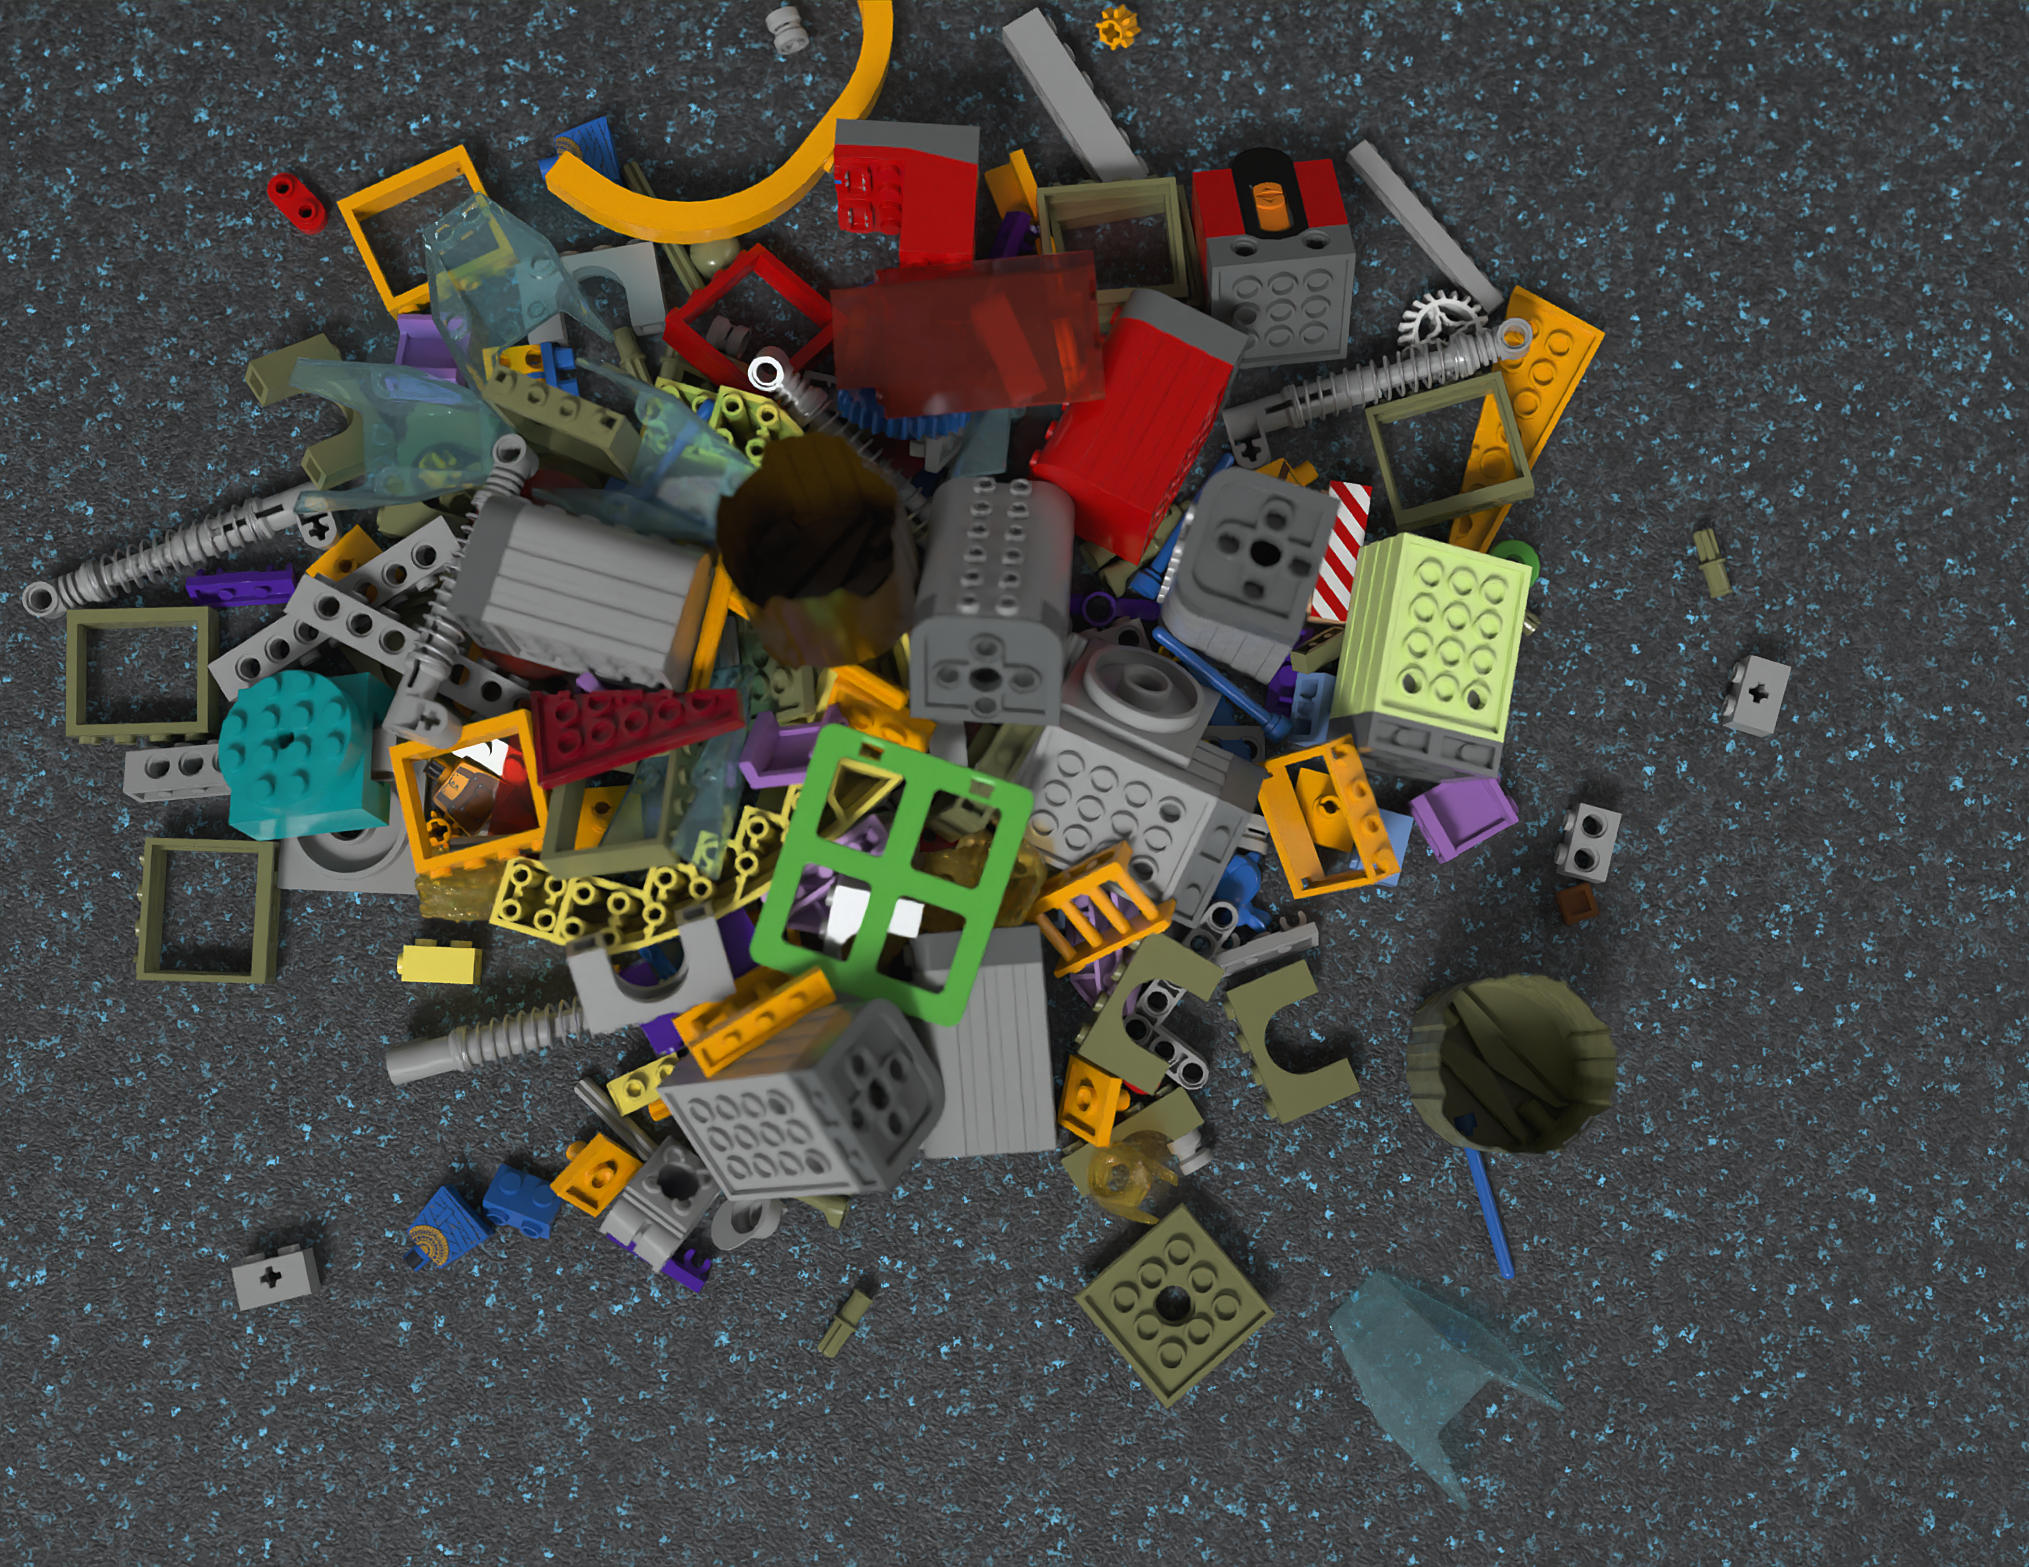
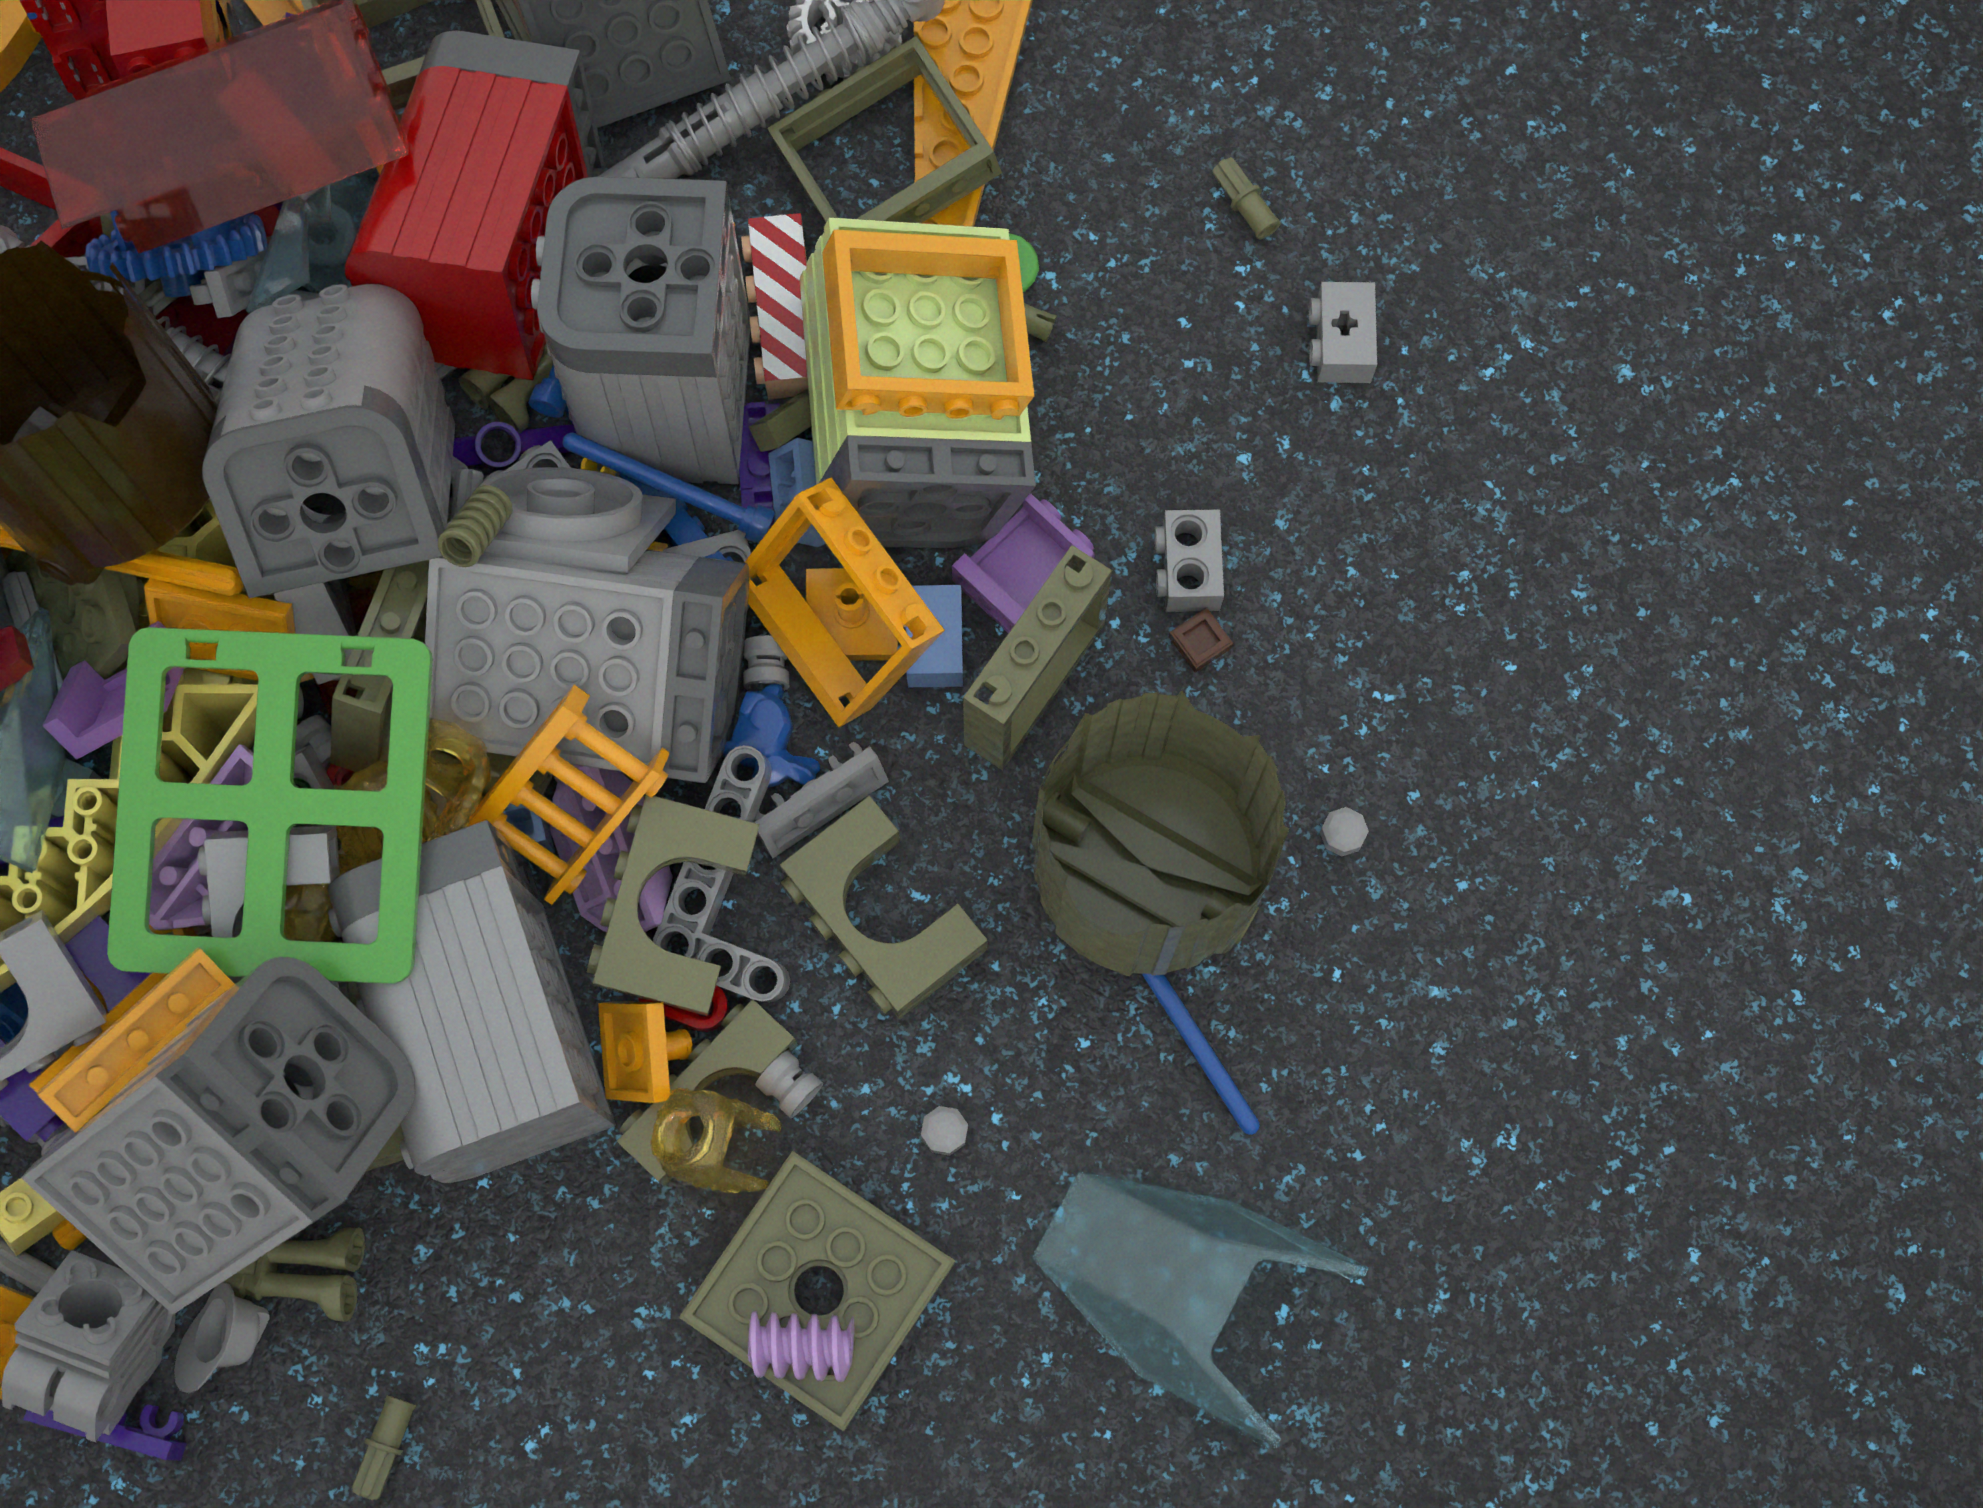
camera: 10 degrees left, 10 degrees down
(1086, 708) = (475, 526): none -> olive piece
(1156, 1346) = (800, 1347): none -> lavender piece
(1290, 1214) = (944, 1130): none -> light grey tile
(1394, 629) = (925, 256): none -> light orange window
(1457, 897) = (1037, 657): none -> olive window
(1639, 1079) = (1344, 831): none -> light grey tile

